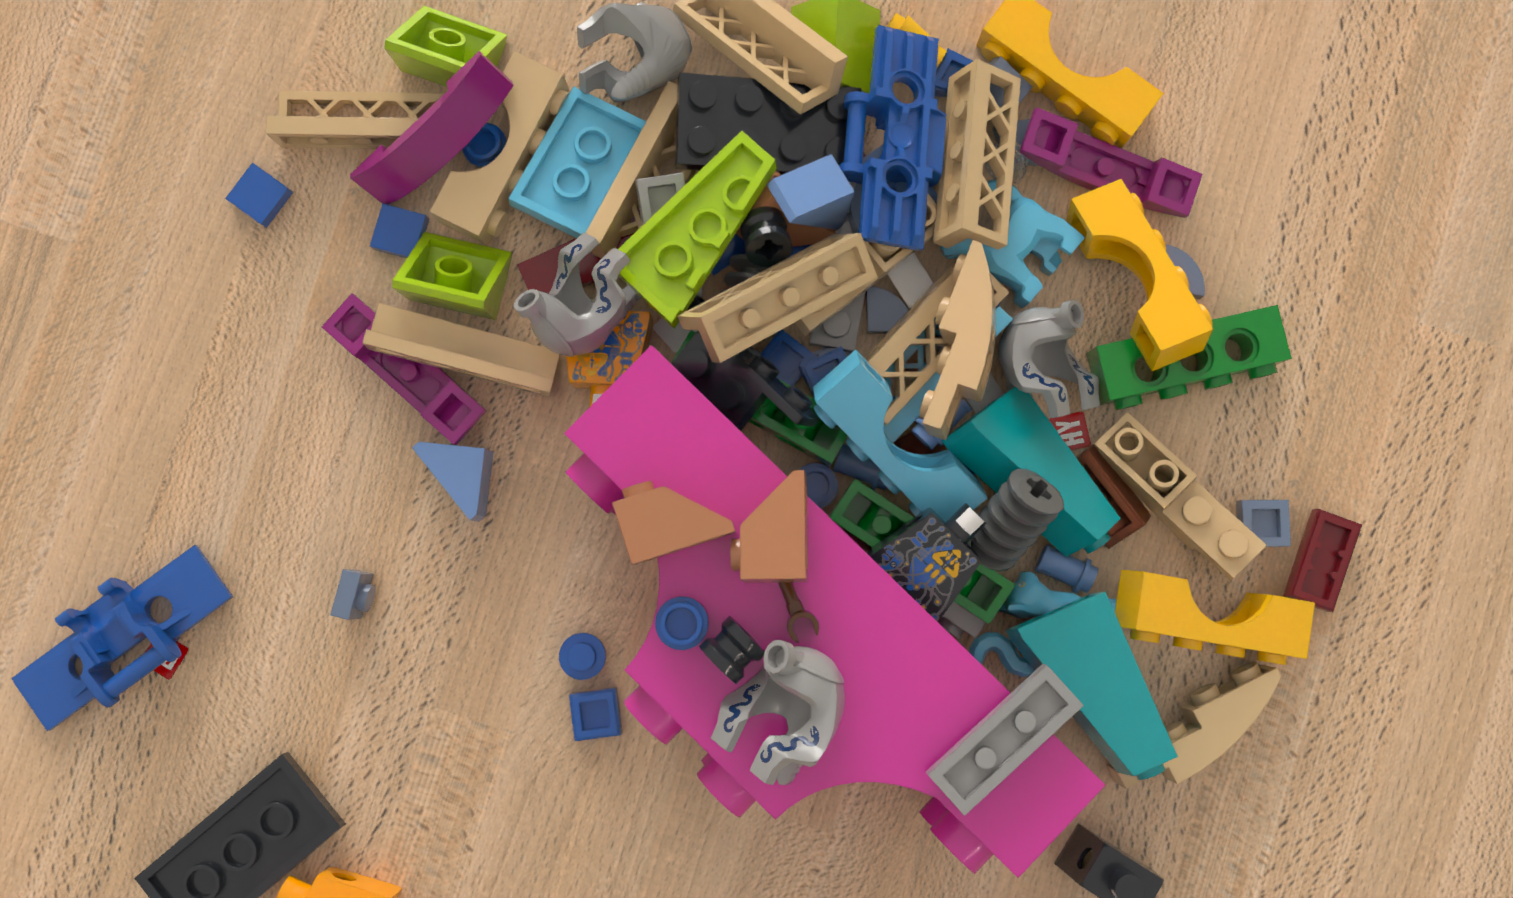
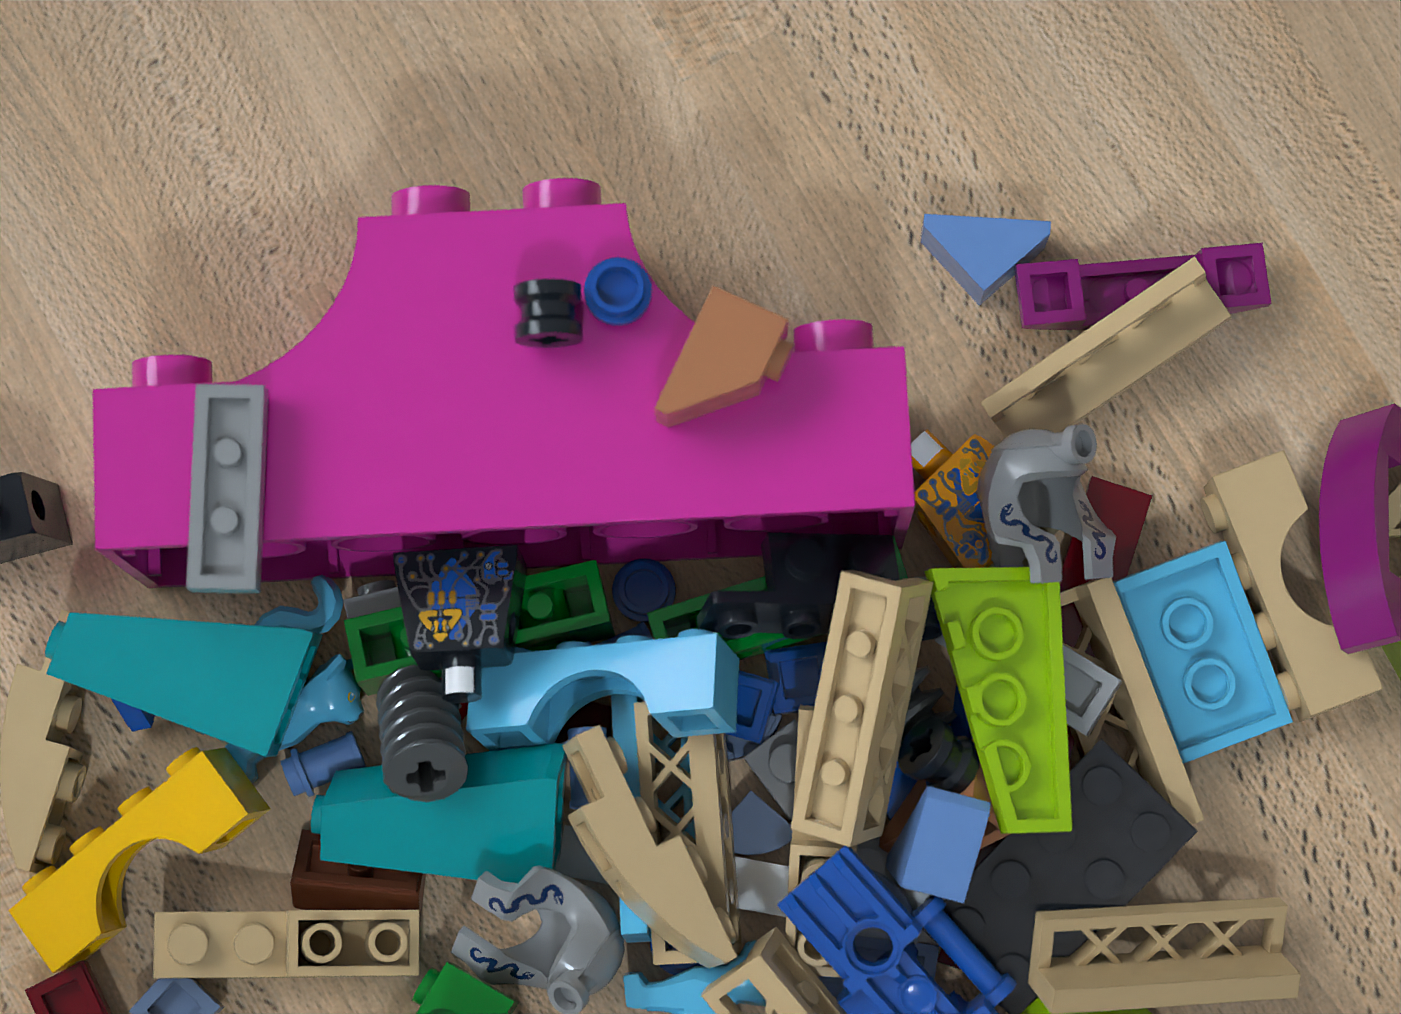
camera: 135 degrees right, 5 degrees down
(353, 594) = (956, 44): sand blue plate -> none
(398, 230) = (1297, 409): blue tile -> none
(454, 275) = (1197, 423): lime slope -> none
(485, 145) = (1304, 577): blue plate -> none
(582, 656) = (690, 210): blue plate -> none
(595, 714) = (624, 172): blue tile -> none
(659, 40) = (1272, 848): light grey piece -> none
(775, 536) = (613, 448): nougat slope -> none
(795, 609) = (532, 410): reddish brown hand -> none
(801, 688) = (452, 344): light grey piece -> none
(1072, 430) = (452, 905): red sticker -> none

